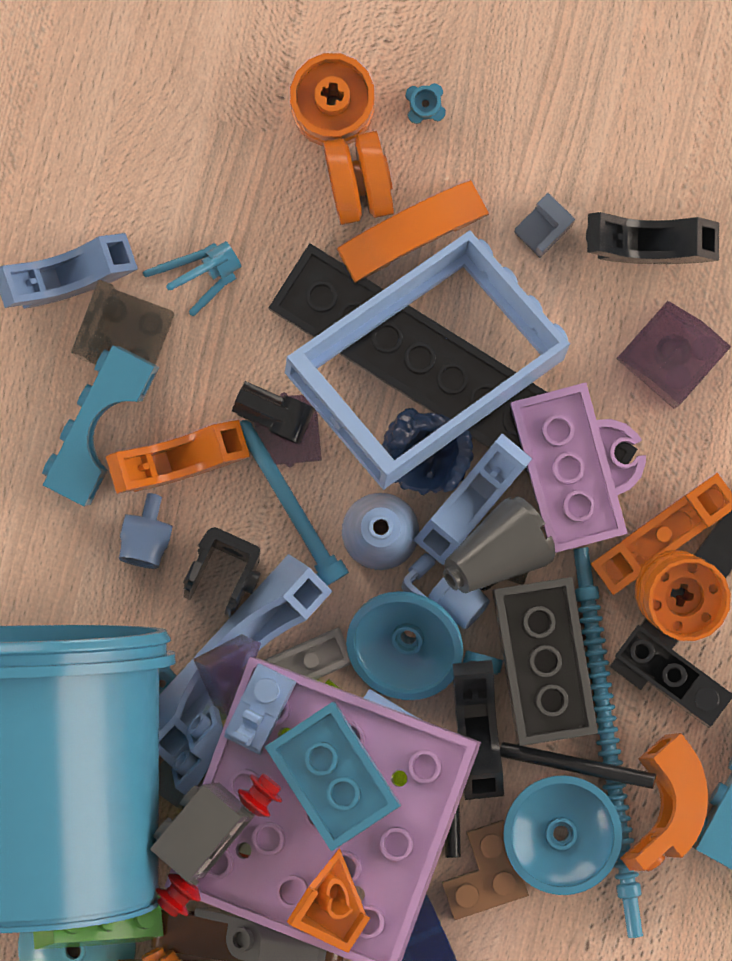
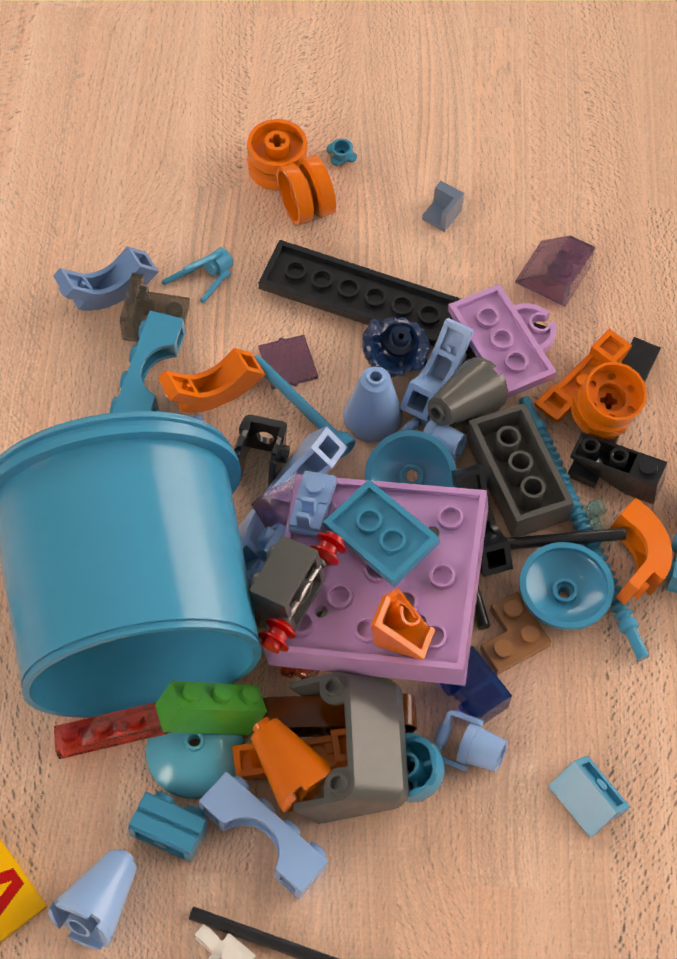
camera: 15 degrees left, 25 degrees down
(282, 415) = (284, 346): black piece -> none
(412, 229) = (347, 218): orange slope -> none
(499, 285) = (301, 290): light blue window -> none
(629, 725) = (594, 510): none -> clear light blue hand
(652, 241) = (523, 204): black arch -> none

